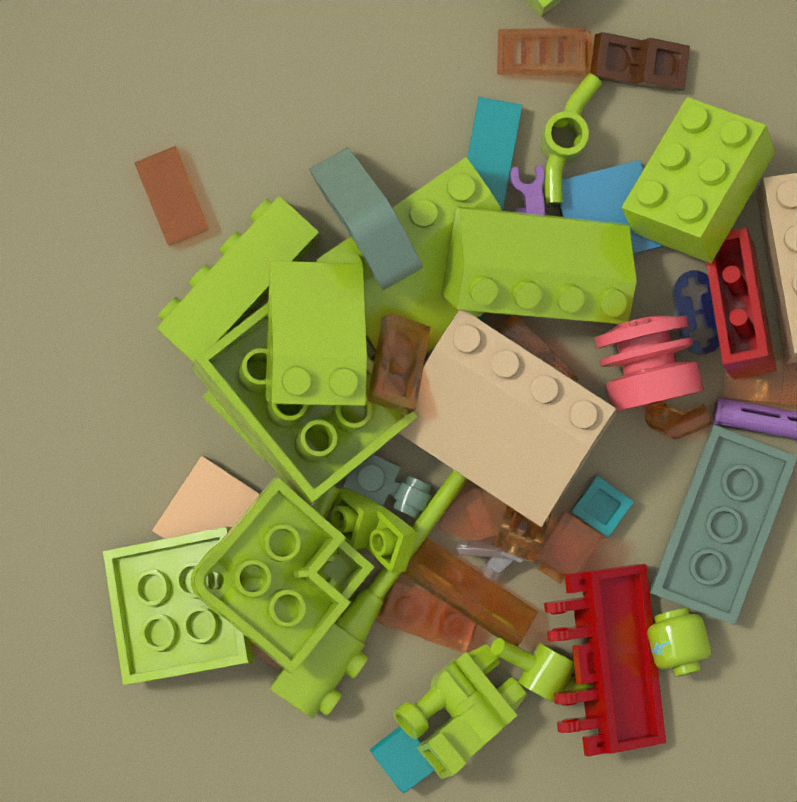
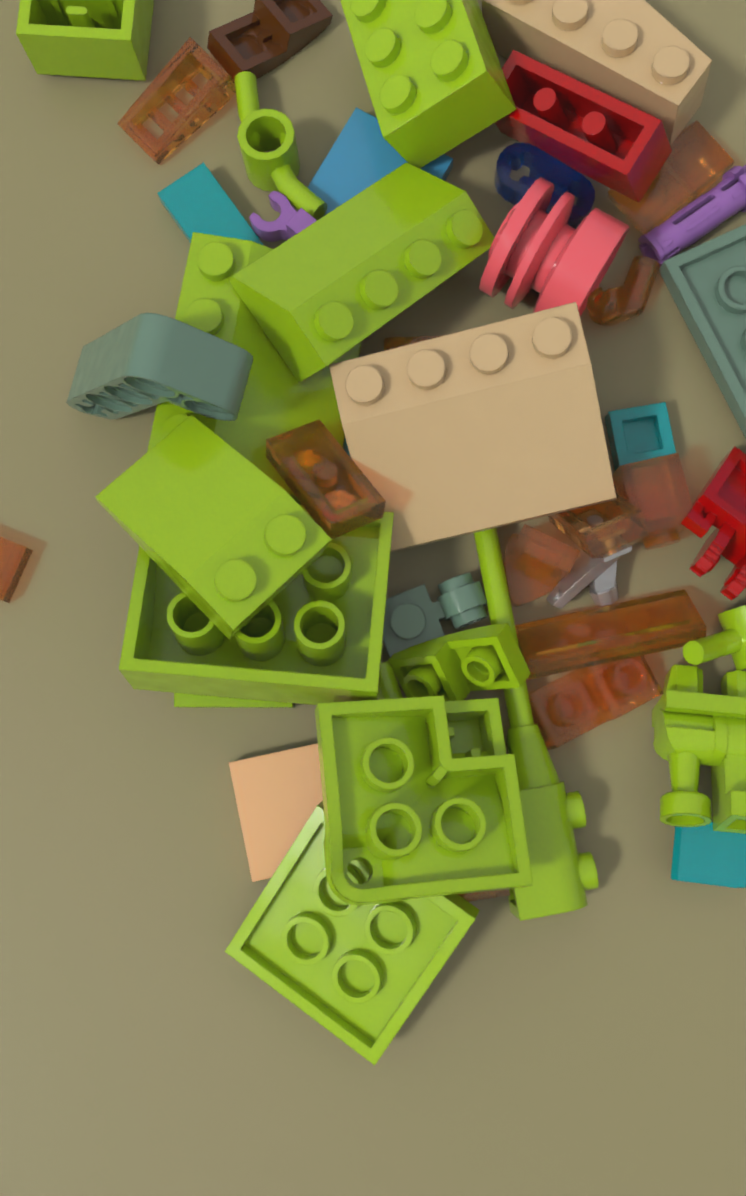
camera: 35 degrees left, 5 degrees down
(239, 279) = (94, 565): lime brick -> none

